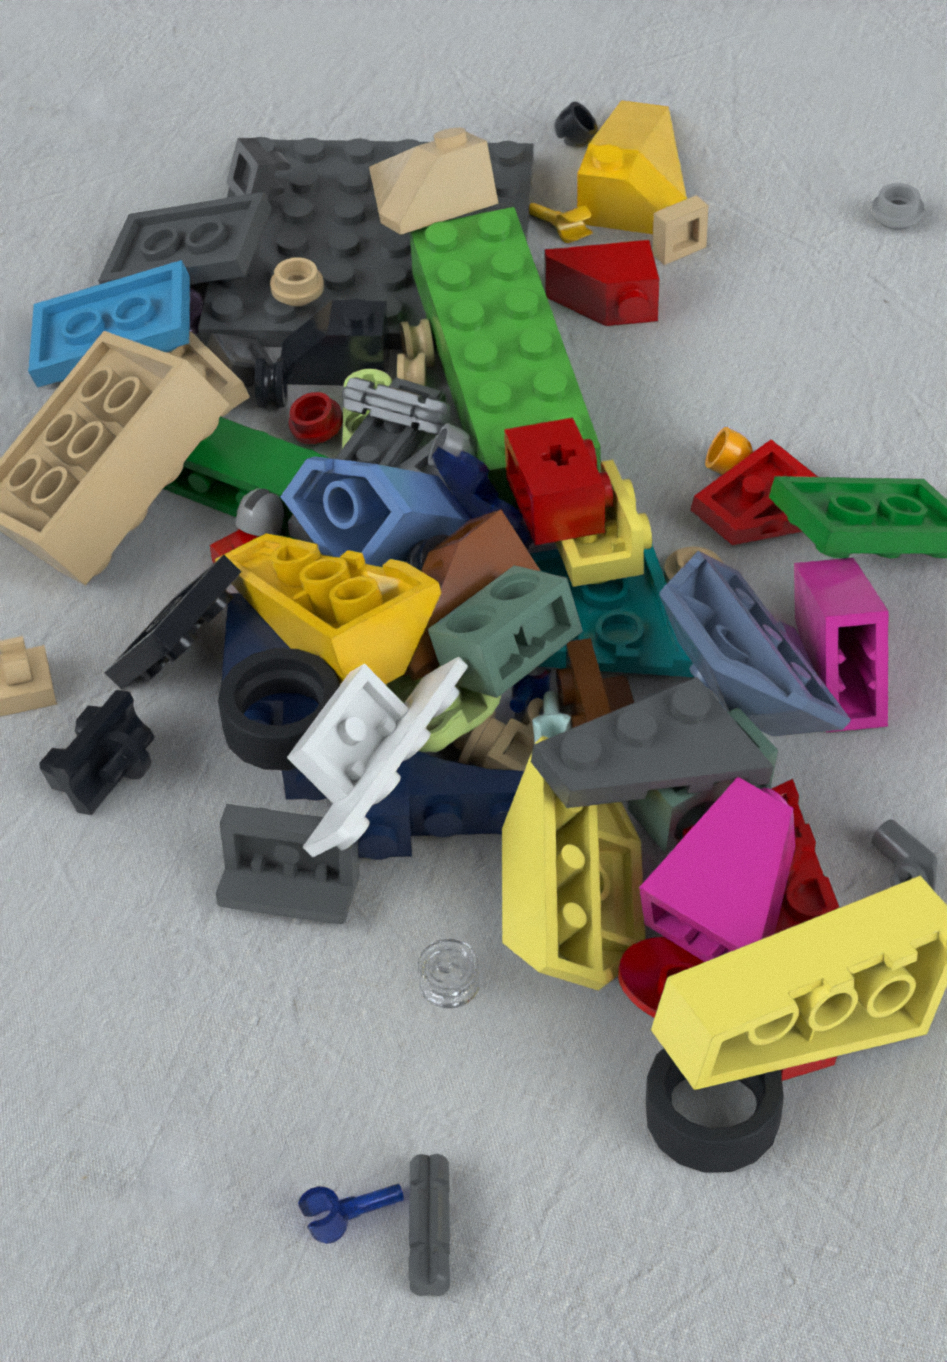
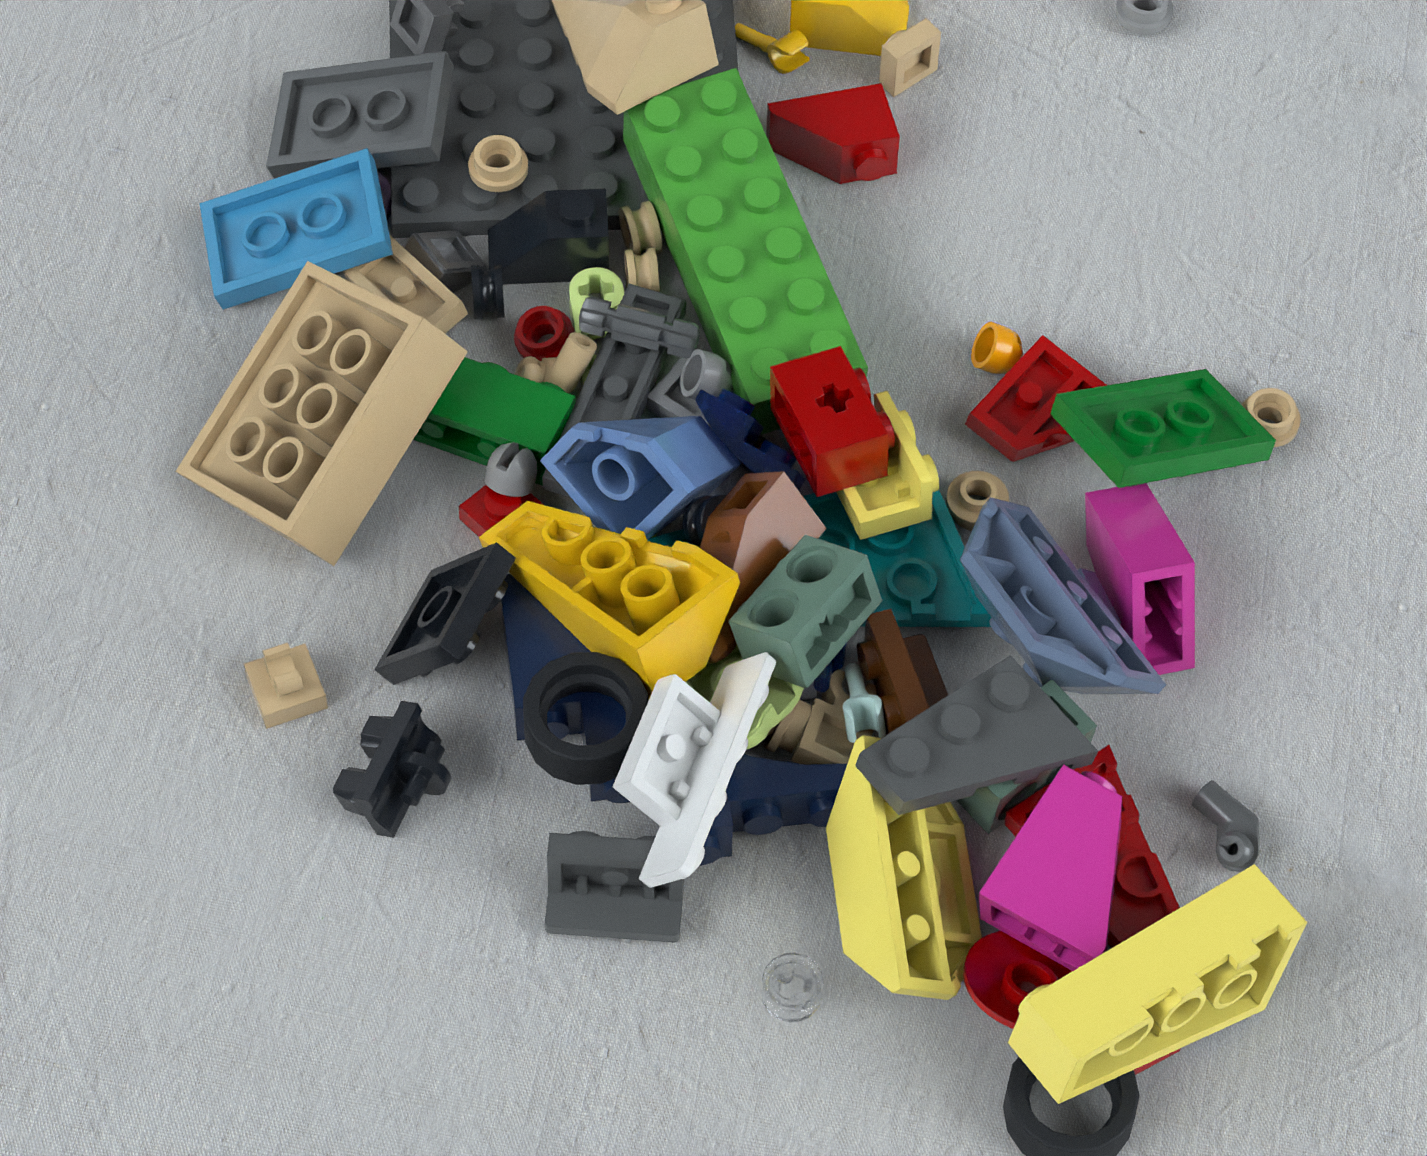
camera: 10 degrees left, 10 degrees up
(331, 435) = (562, 370): none -> tan arm

